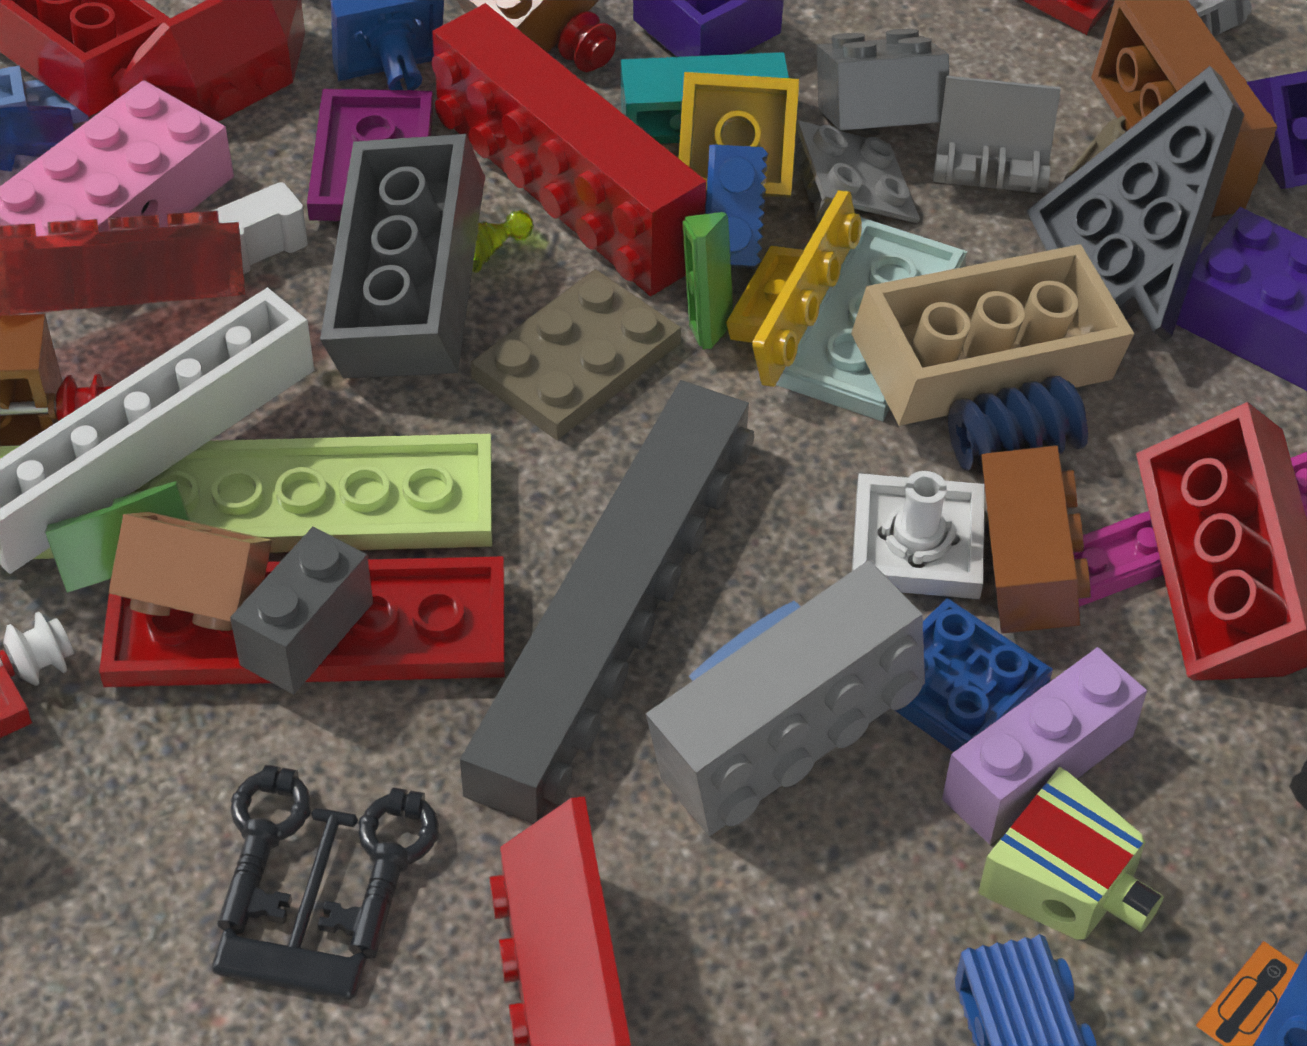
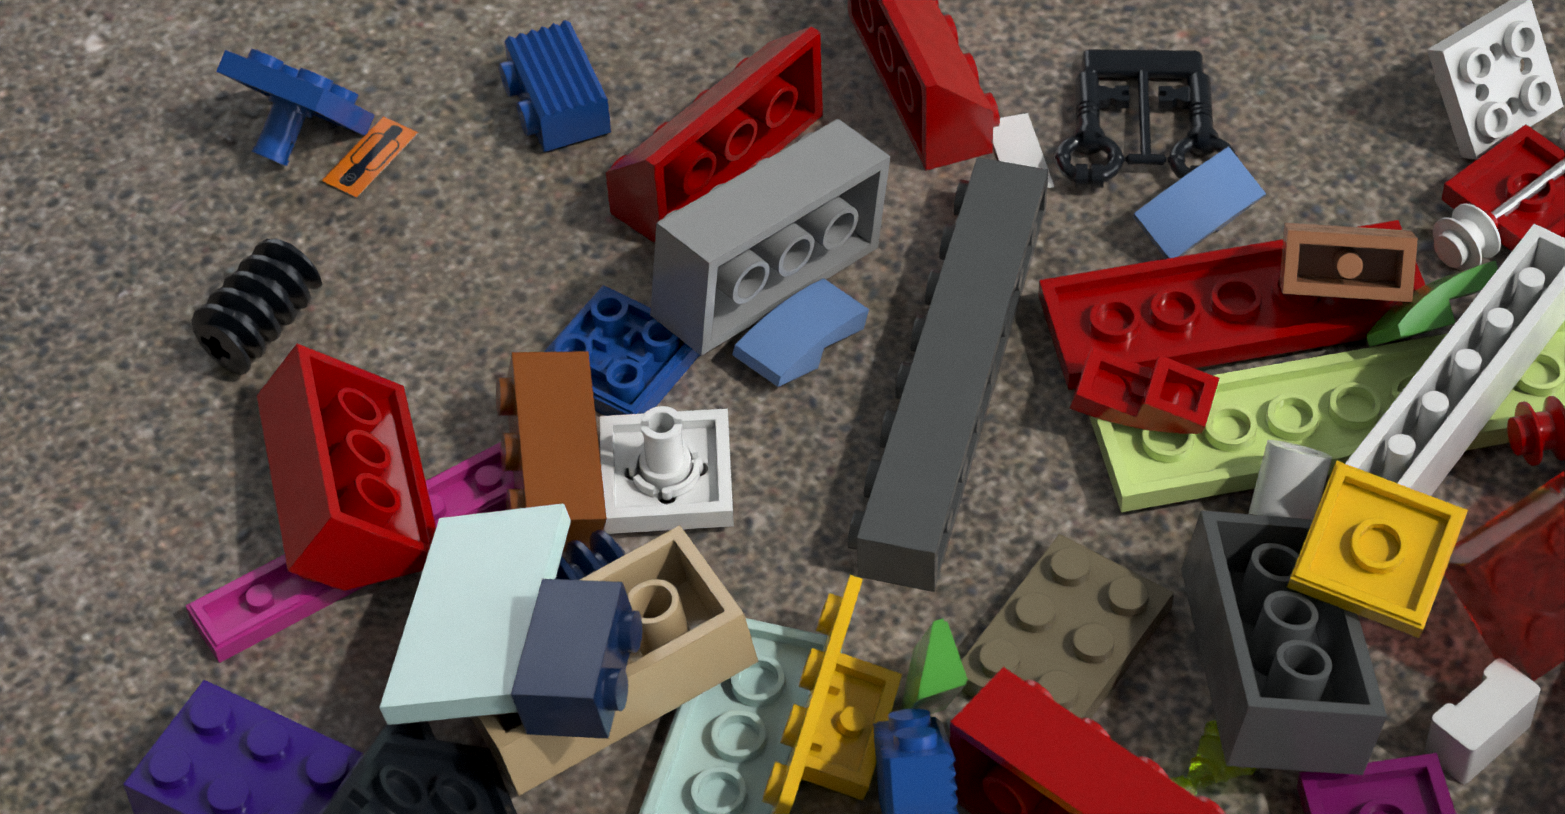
camera: 175 degrees right, 0 degrees up
(285, 733) = (1199, 204): none -> medium blue slope
(302, 256) = (1377, 549): none -> yellow tile
(302, 610) = (1229, 252): dark grey brick -> none
(335, 406) = (1290, 481): none -> white brick
(430, 504) = (1155, 399): none -> red slope
(470, 860) = (1018, 144): none -> white sticker
(828, 890) = (721, 133): none -> red slope
(1016, 257) = (576, 658): none -> dark blue brick
(1062, 725) = (539, 280): lavender brick -> none
(1070, 863) = (520, 200): yellowish green torso -> none
(1102, 348) = (473, 614): none -> light aqua tile

